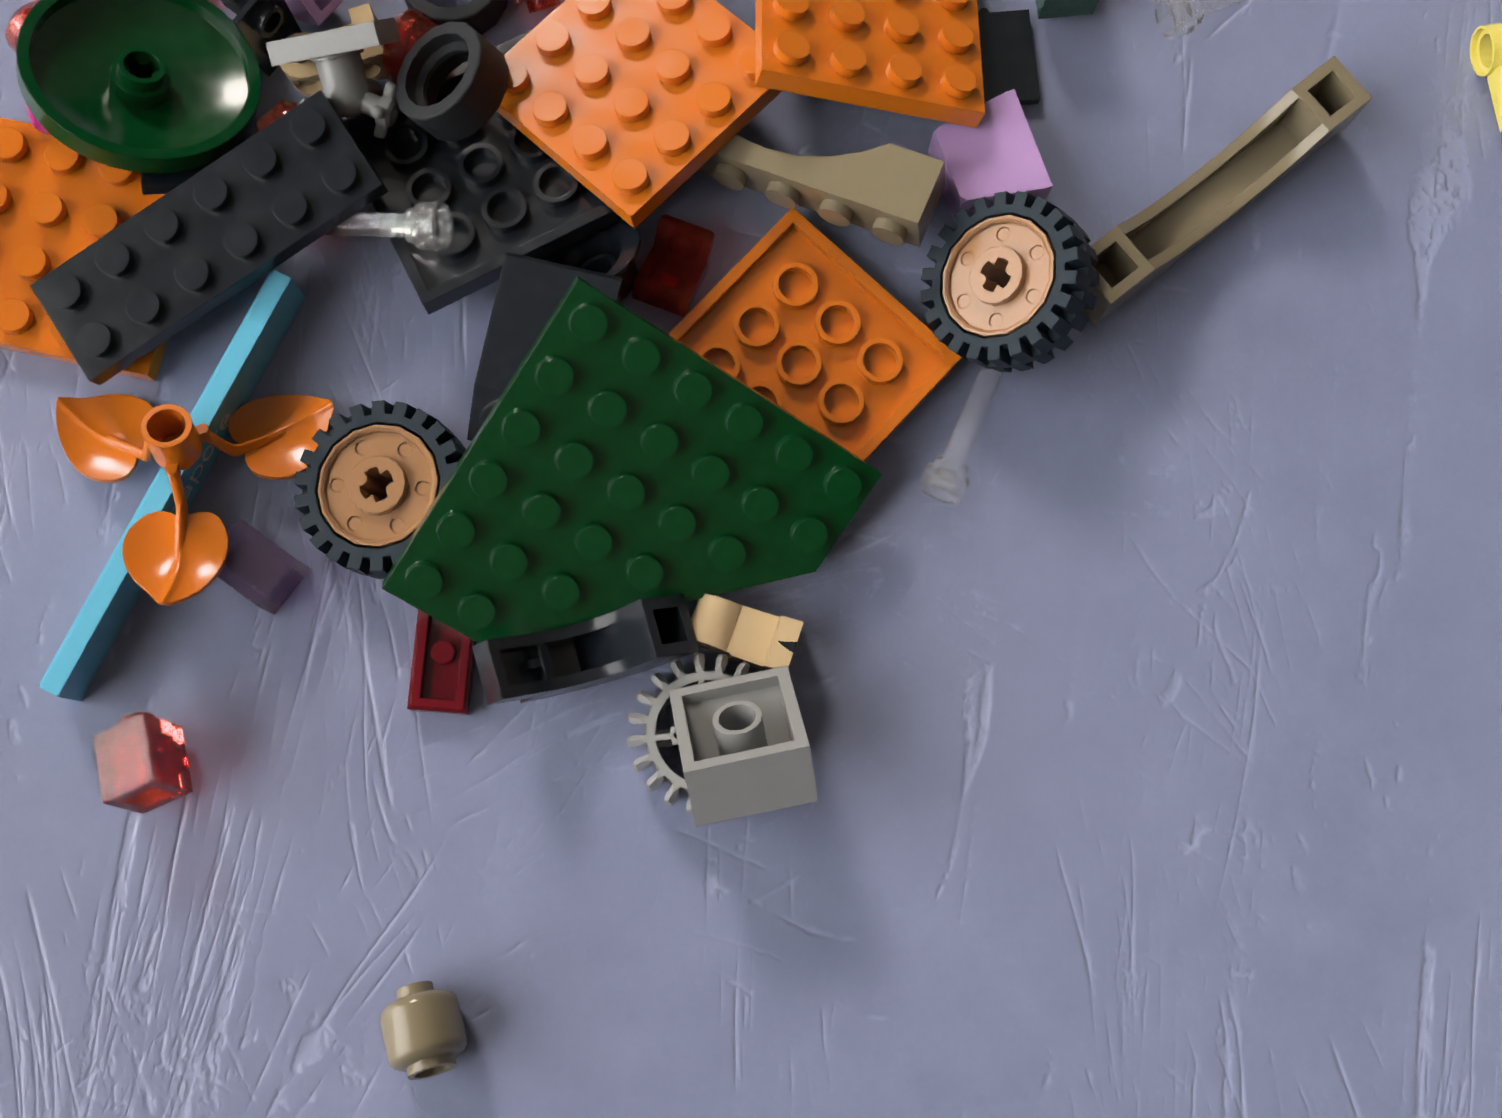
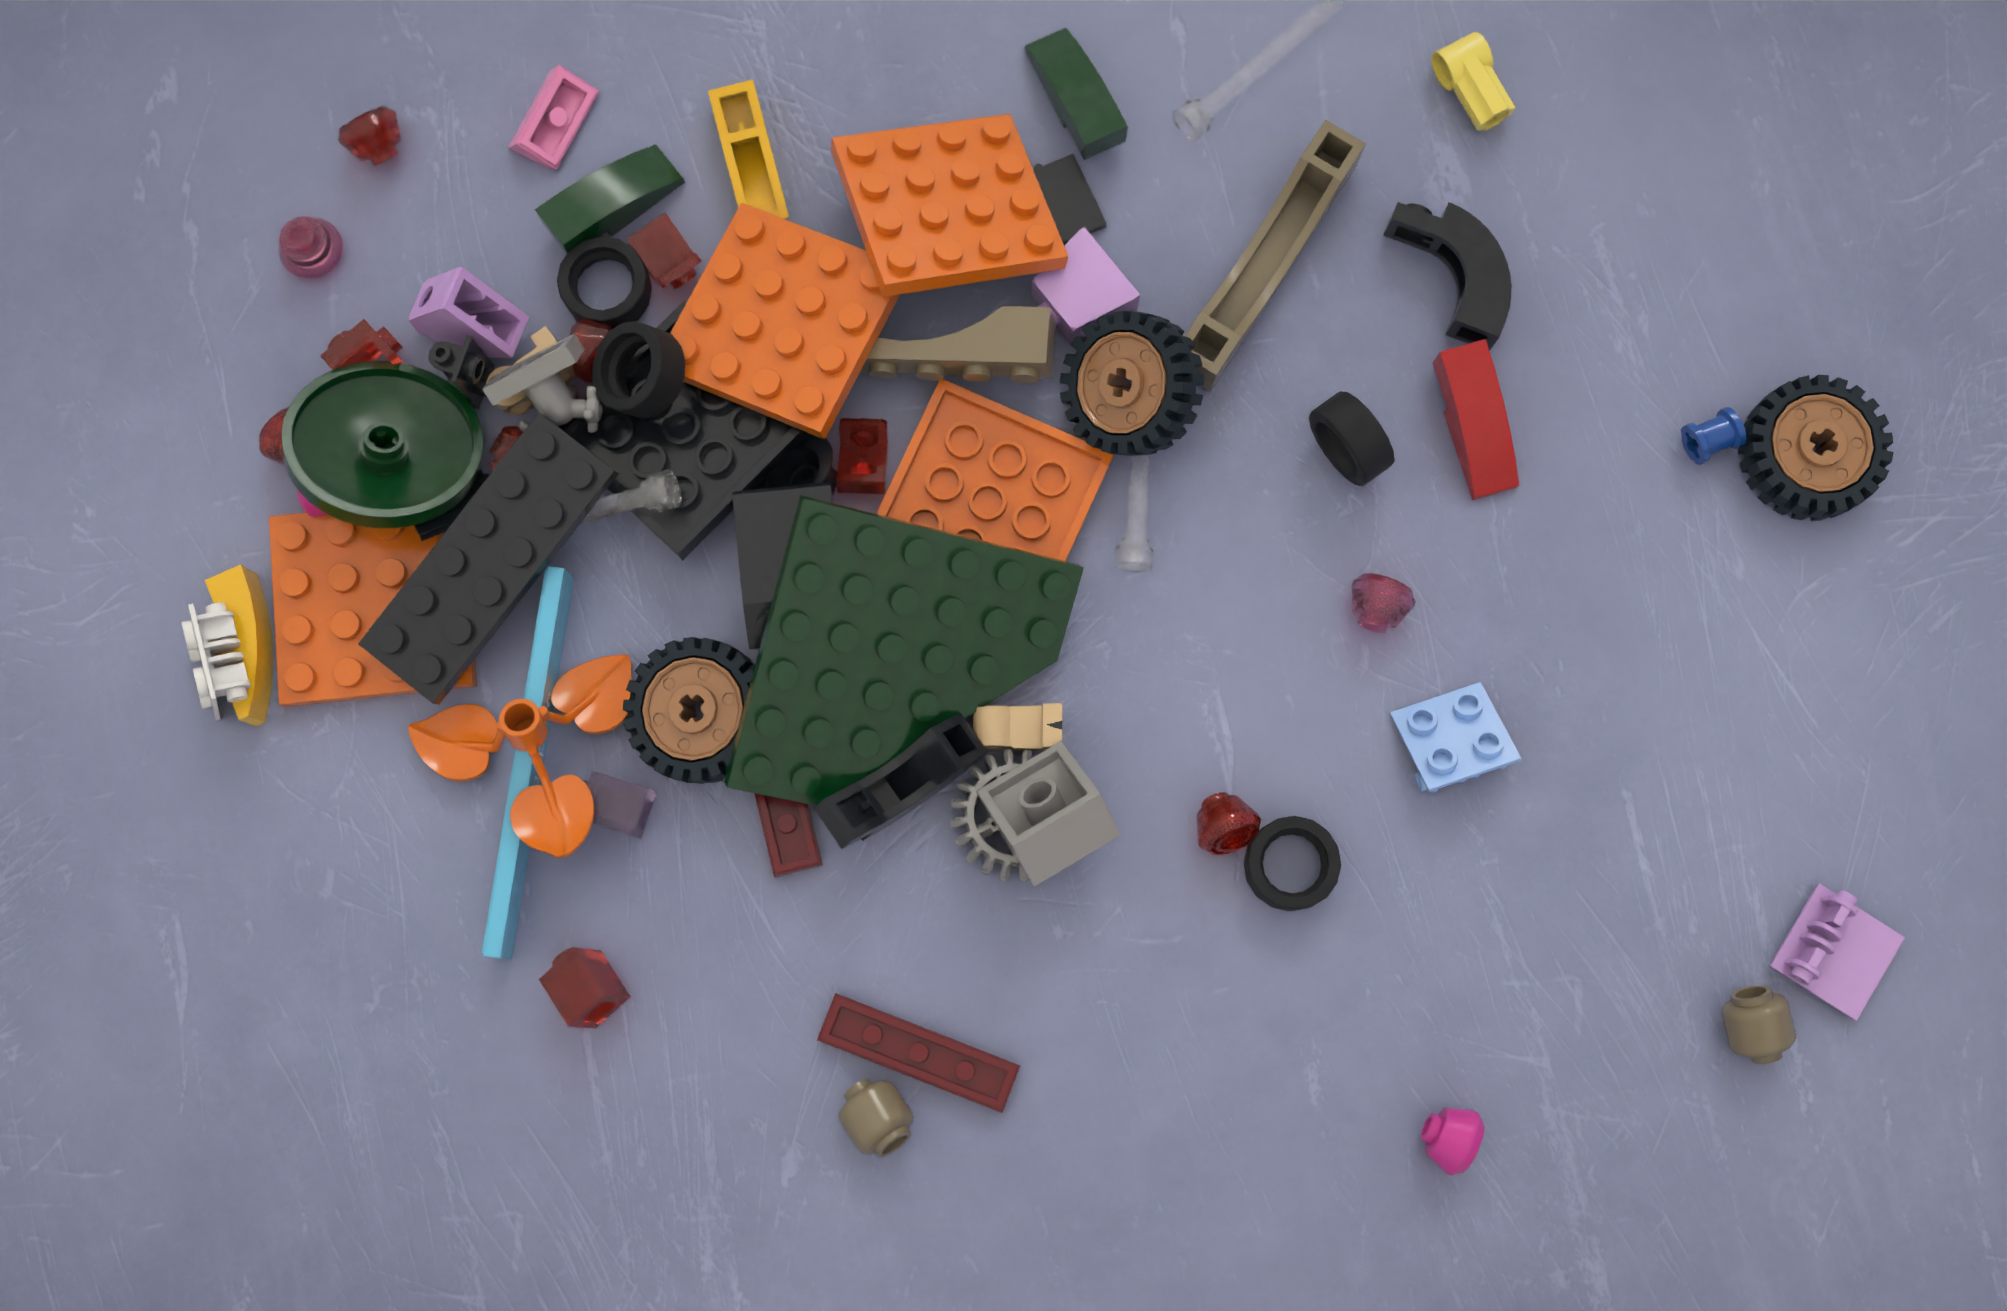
camera: 15 degrees left, 0 degrees up
(501, 970) = (918, 1052): none -> dark red tile
(947, 827) = (1226, 824): none -> clear red cone
(1054, 909) = (1329, 859): none -> black tyre
(1214, 629) = (1380, 601): none -> clear pink cone
(1243, 429) = (1351, 438): none -> black tyre
(1249, 817) = (1454, 737): none -> light blue hinge
(1396, 455) = (1477, 418): none -> red slope
(1448, 272) = (1471, 257): none -> black arch

